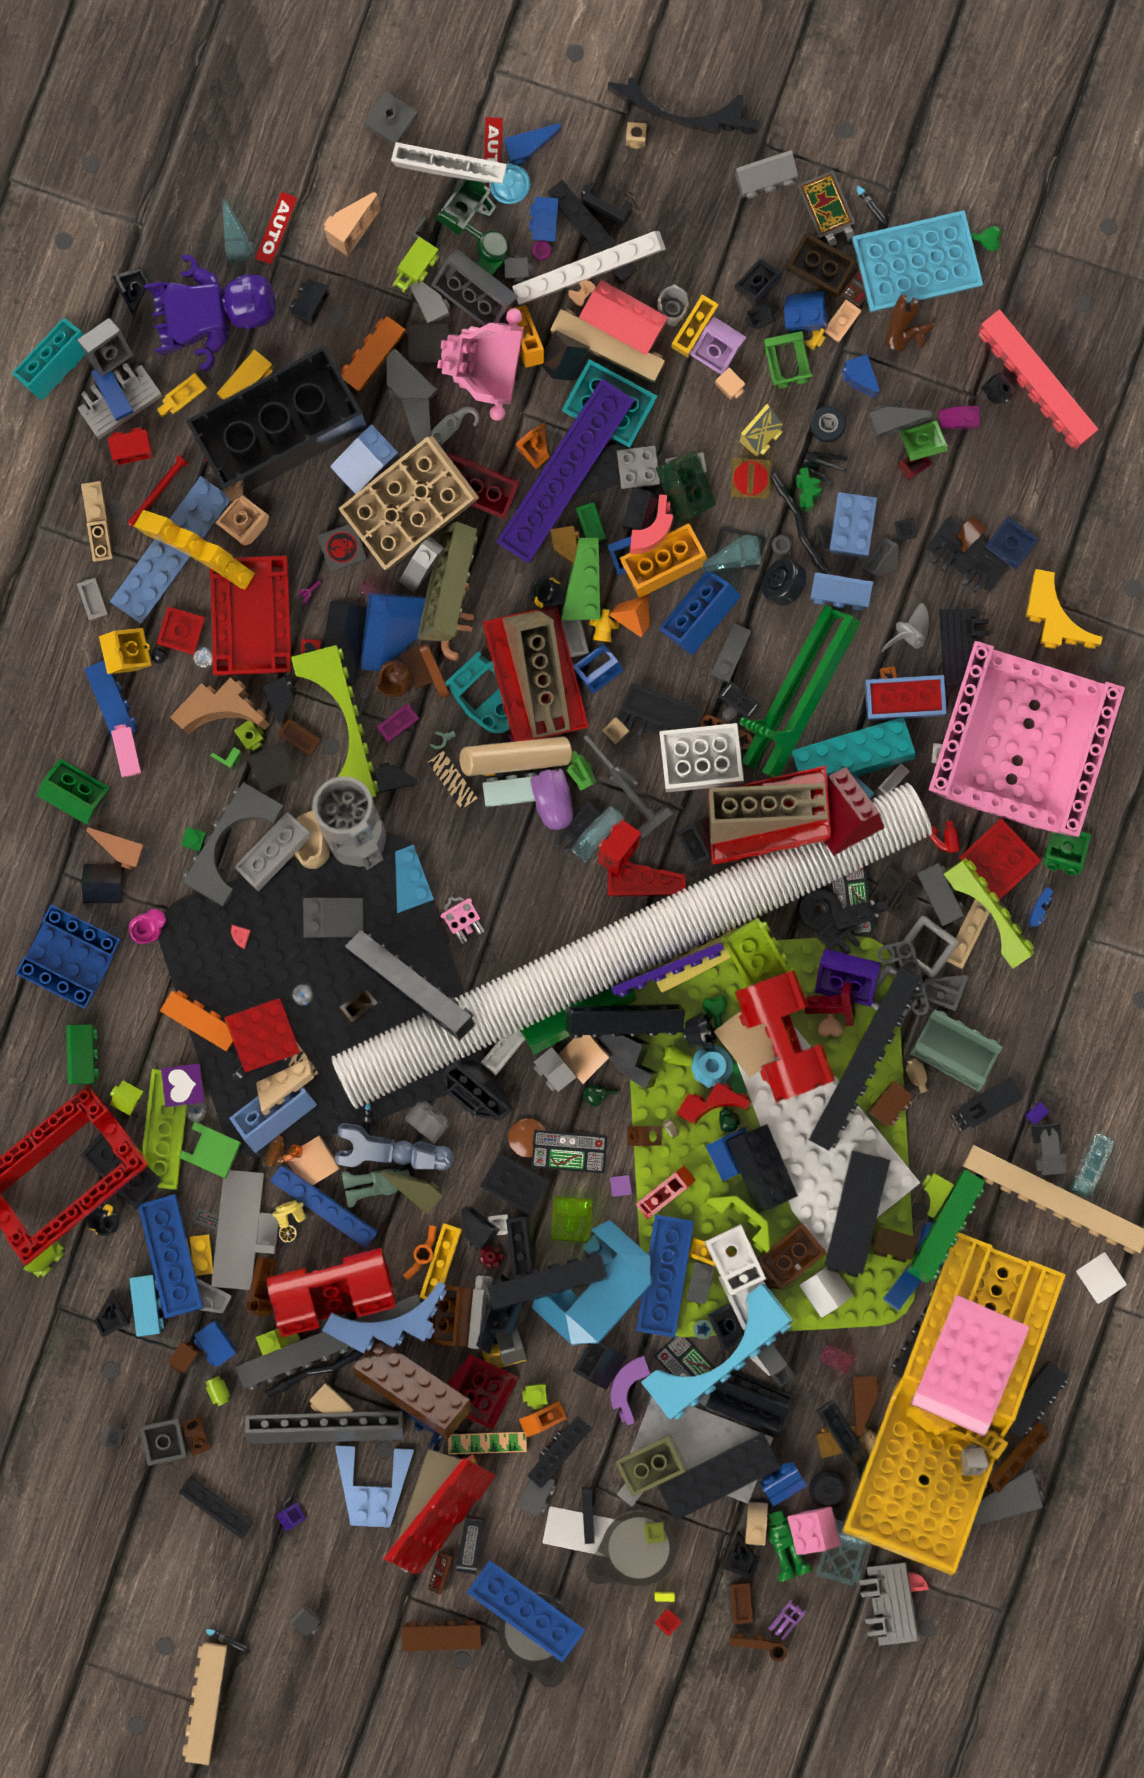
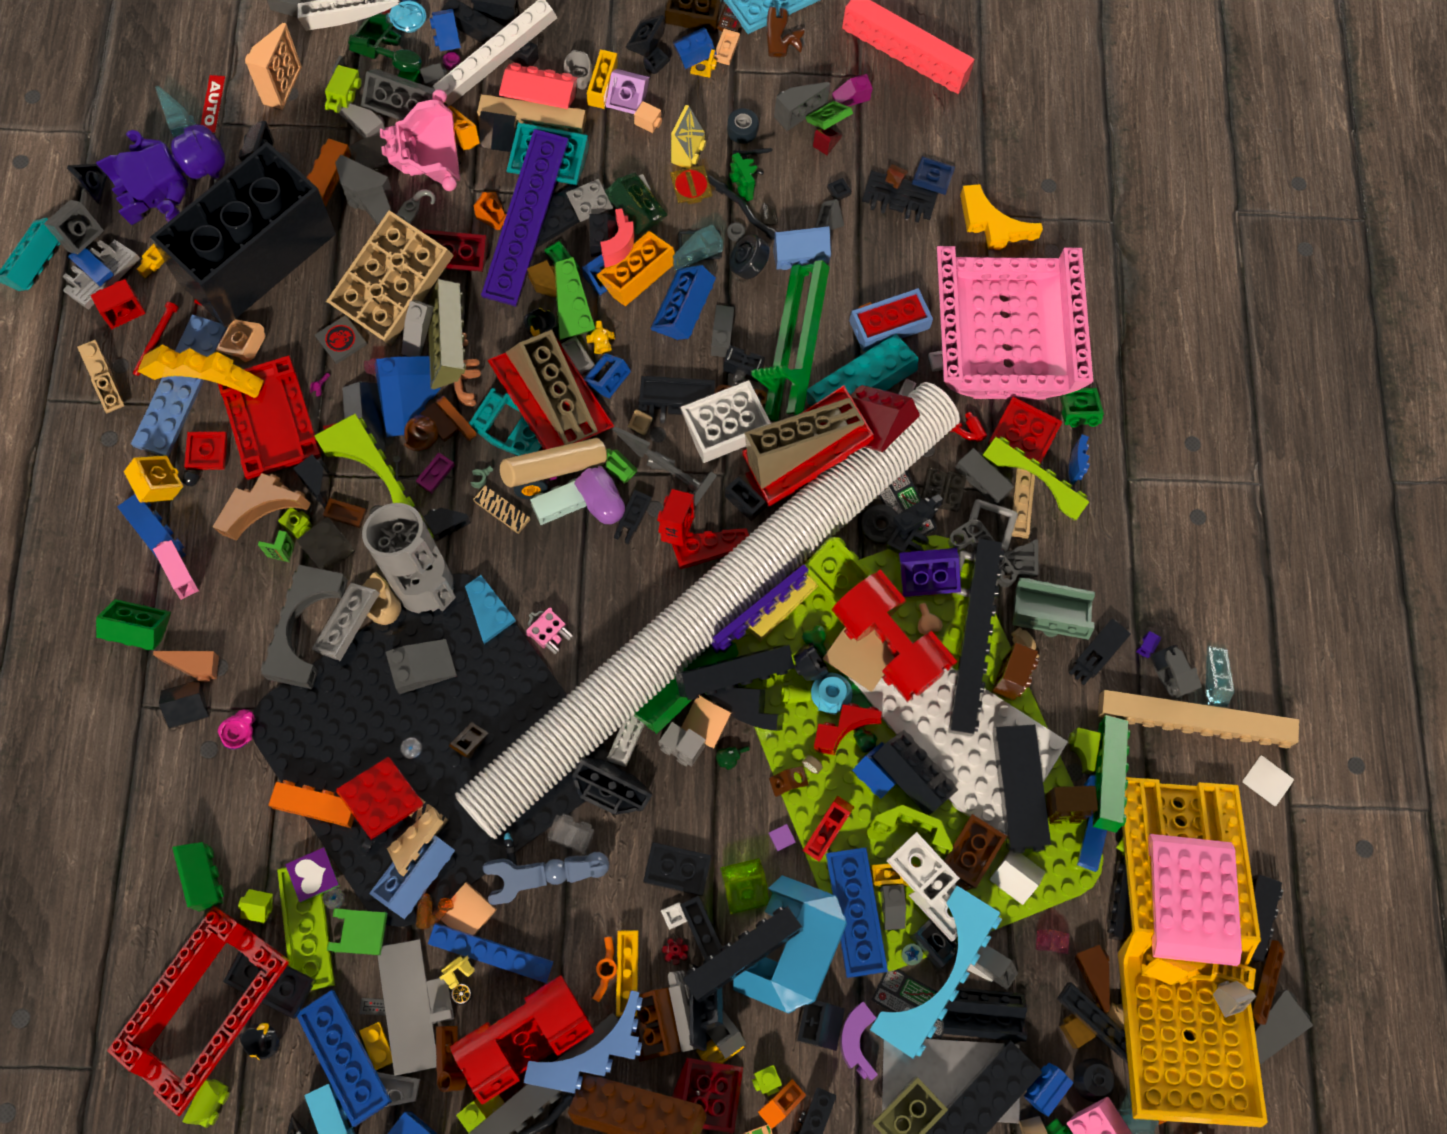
camera: 30 degrees left, 15 degrees down
(69, 957) = (165, 782): blue slope -> none
(92, 599) = (114, 447): light grey tile -> none
(193, 839) = (263, 632): green brick -> none
(203, 657) = (233, 468): clear tile -> none
(240, 935) = (334, 710): coral tile -> none
(364, 459) = (337, 257): slope -> none
(380, 1185) = (546, 909): sand green piece -> none
(410, 985) = (515, 698): brick -> none
(416, 1189) = (582, 905): olive slope -> none
(478, 1228) = (654, 925): black slope -> none
(522, 1136) = (675, 819): dark orange dish -> none
(569, 1151) = (720, 820): sticker -> none
(578, 297) = (495, 87): light nougat piece -> none
(591, 838) = (646, 522): clear light blue slope -> none
(634, 614) = (625, 321): orange slope -> none
(804, 371) = (682, 71): bright green panel -> none
(834, 1004) = (927, 598): dark red bracket -> none
(852, 525) = (792, 196): medium blue brick -> none
(861, 376) = (758, 78): blue slope -> none
(914, 631) = (875, 266): light grey piece -> none
(957, 642) = (921, 271): black hinge -> none
(998, 388) = (877, 60): black brick -> none

